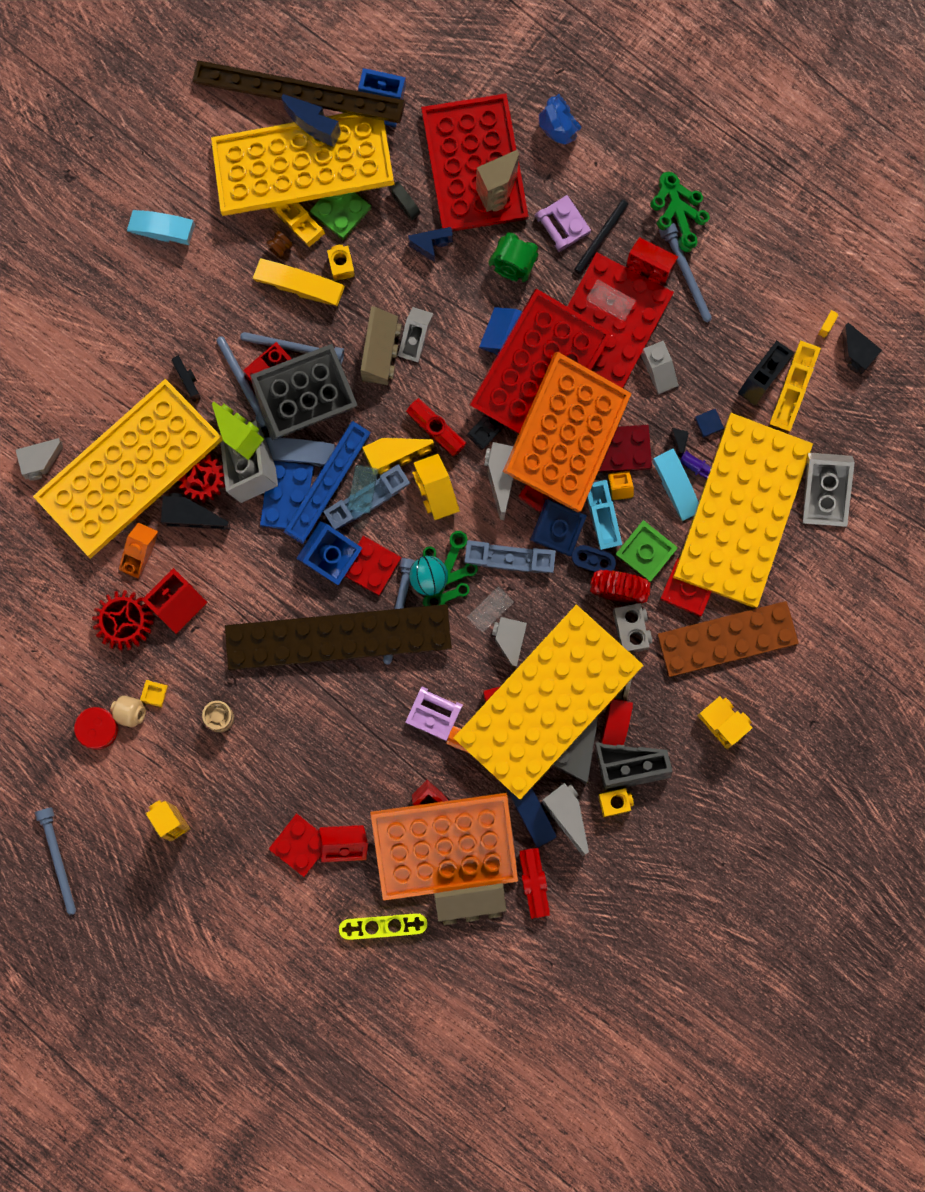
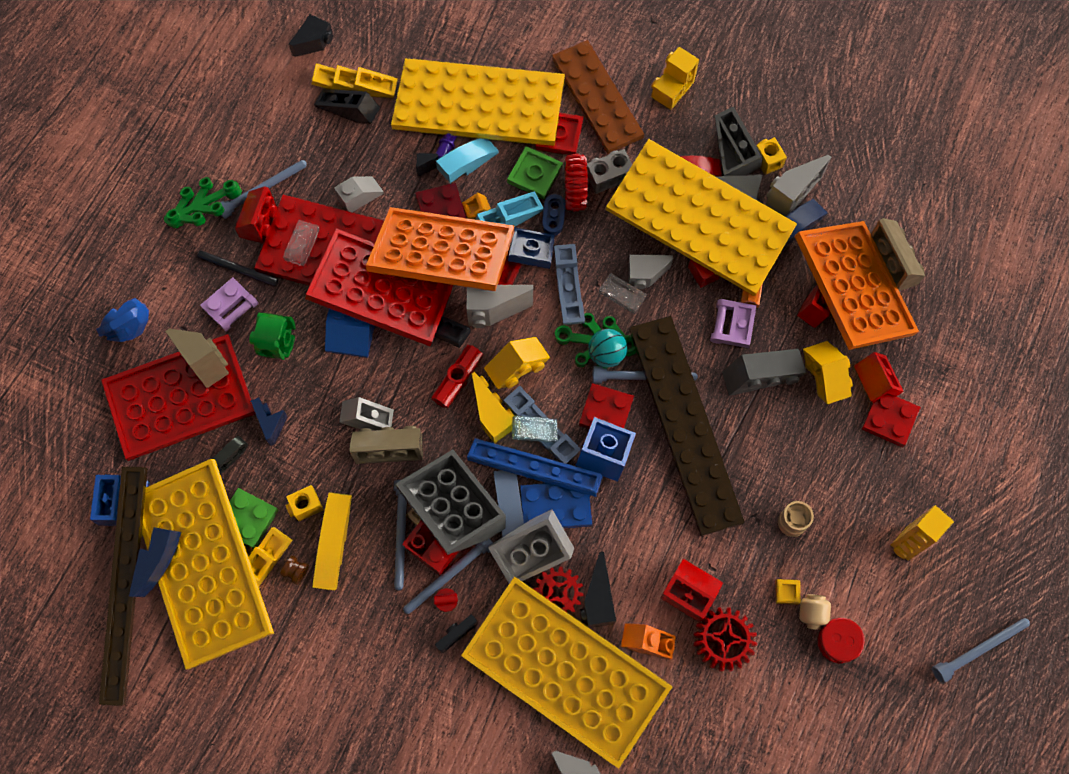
camera: 100 degrees left, 10 degrees down
(161, 226) = (294, 700): medium azure slope -> none
(220, 375) = (446, 600): none -> red plate
(235, 432) = (508, 561): lime slope -> none
(358, 791) = (830, 371): none -> yellow brick
(372, 729) = (763, 370): none -> dark grey wedge
(383, 930) = (938, 328): neon yellow beam -> none
(534, 883) = (861, 207): red piece -> none
(709, 423) = (403, 144): dark blue tile -> none
(826, 327) = (292, 63): yellow tile -> none
(828, 489) = (443, 38): light grey slope -> none

